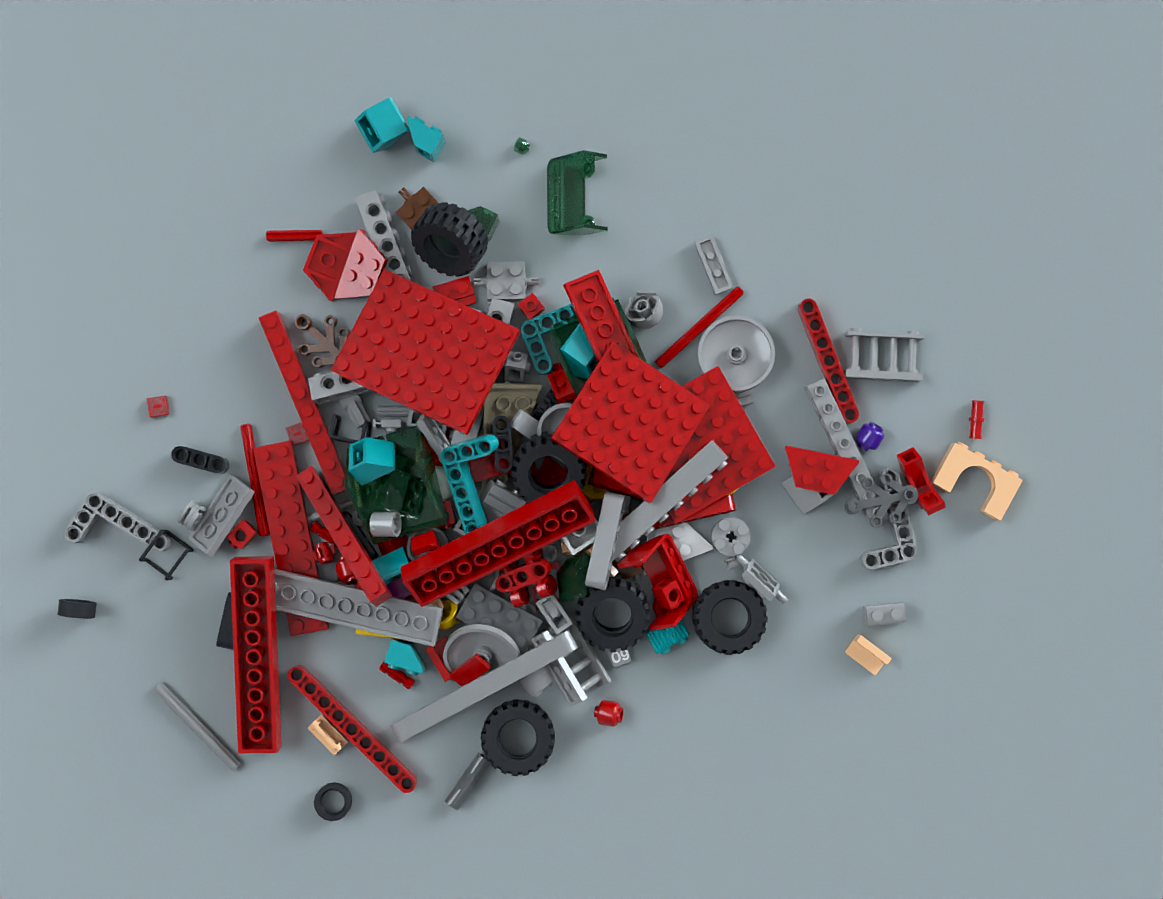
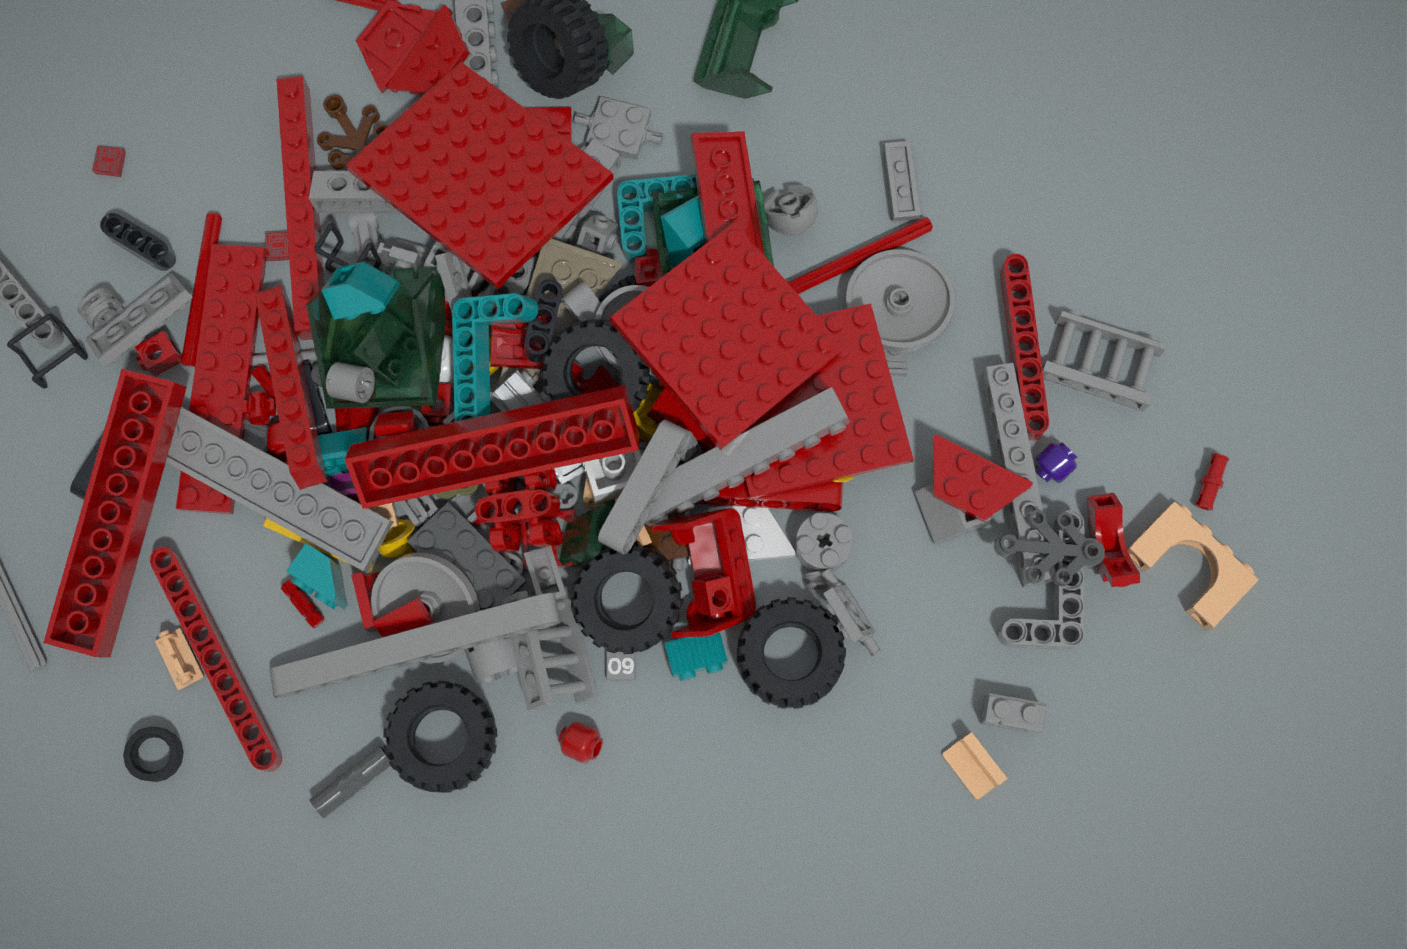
camera: 20 degrees right, 10 degrees down
(531, 307) = (640, 164): red brick -> none

